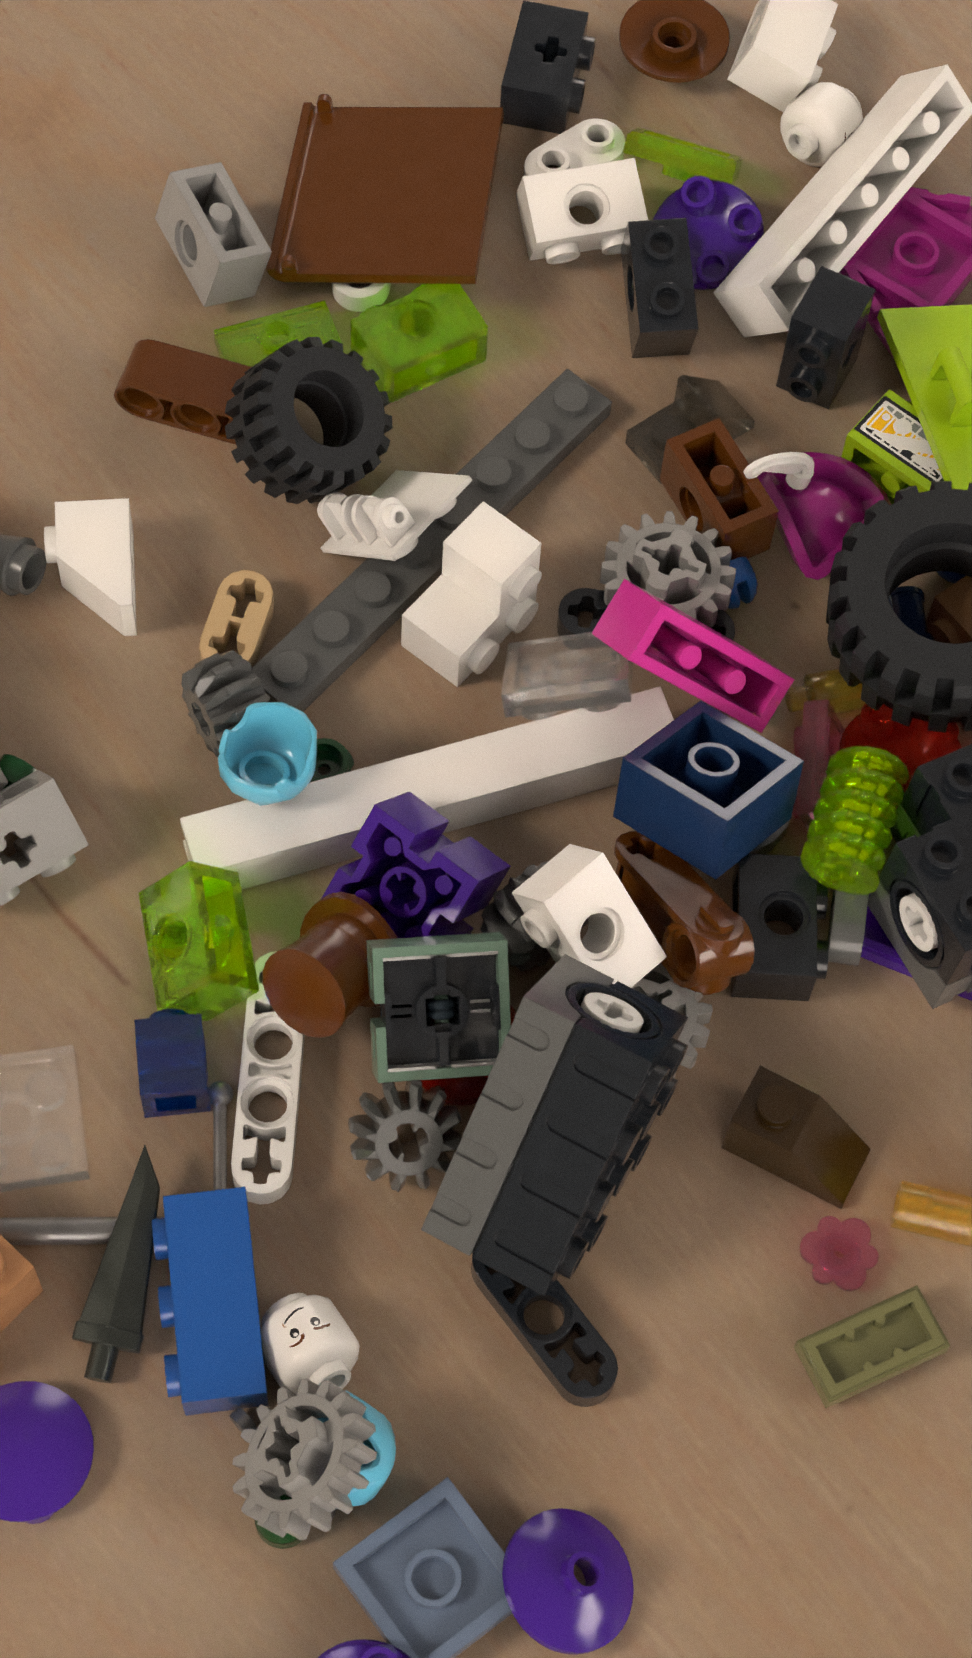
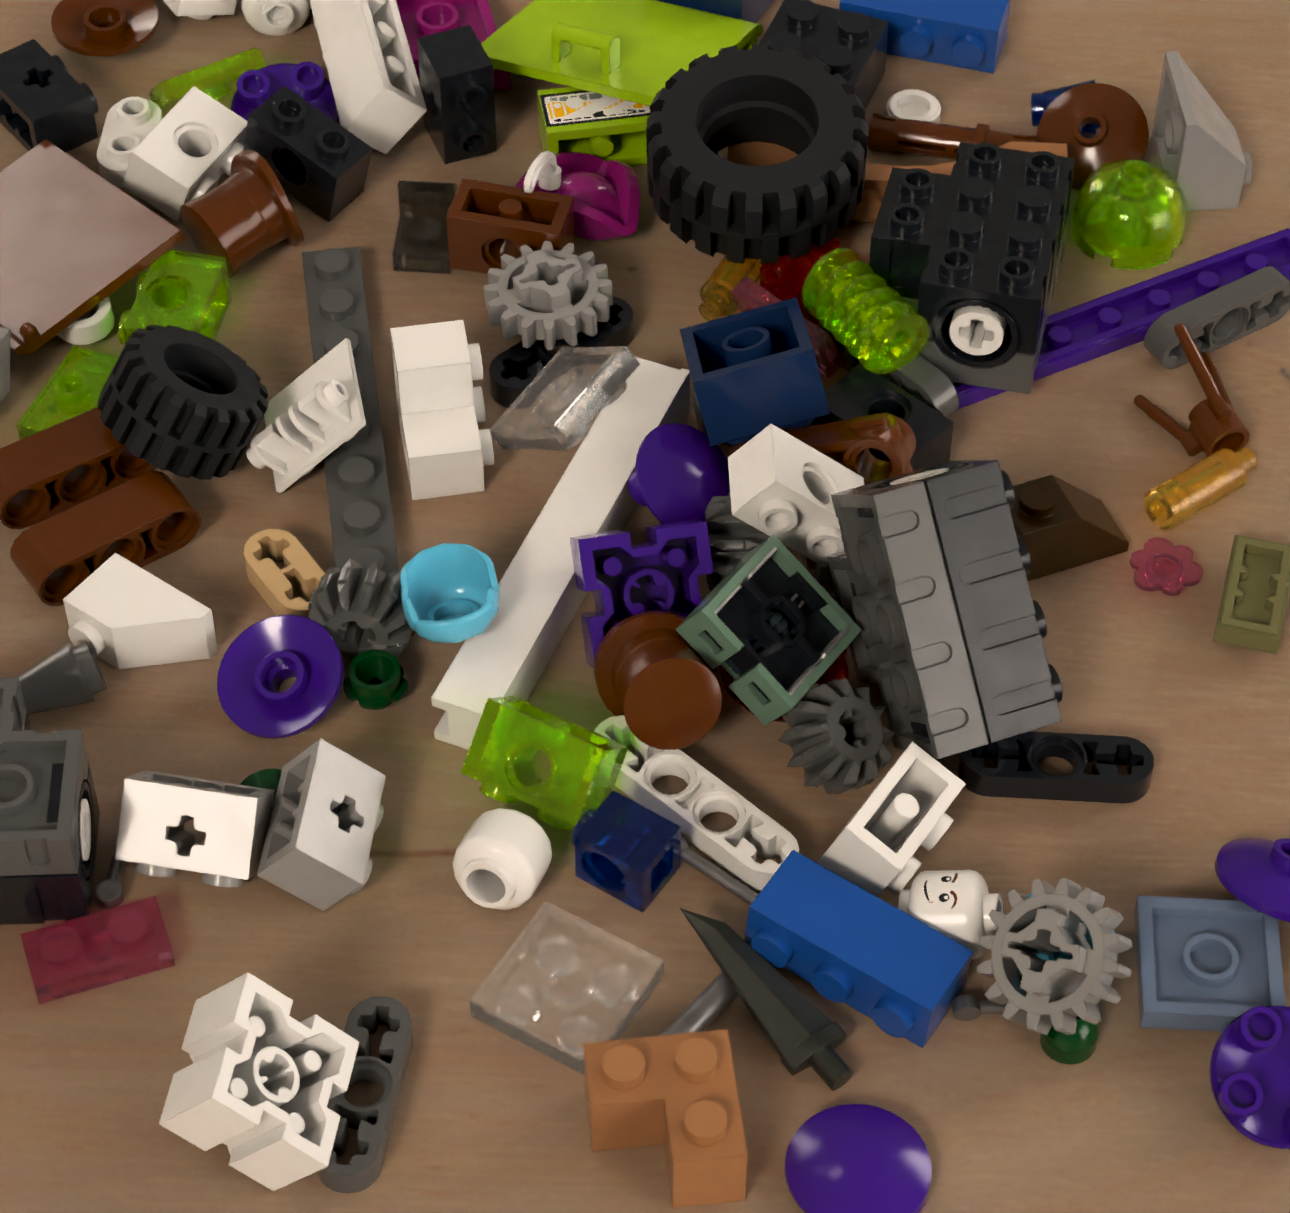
camera: 45 degrees left, 15 degrees down
(89, 984) = (502, 859): none -> white head
(112, 686) = (265, 658): none -> dark purple dish
(158, 477) = (135, 519): none -> reddish brown beam
(187, 749) = (375, 668): none -> dark green plate
(350, 1239) = (893, 822): none -> white brick
(545, 303) = (242, 214): none -> reddish brown piece
(565, 808) = (678, 473): none -> dark purple dish
(692, 656) = (634, 307): dark pink brick -> none

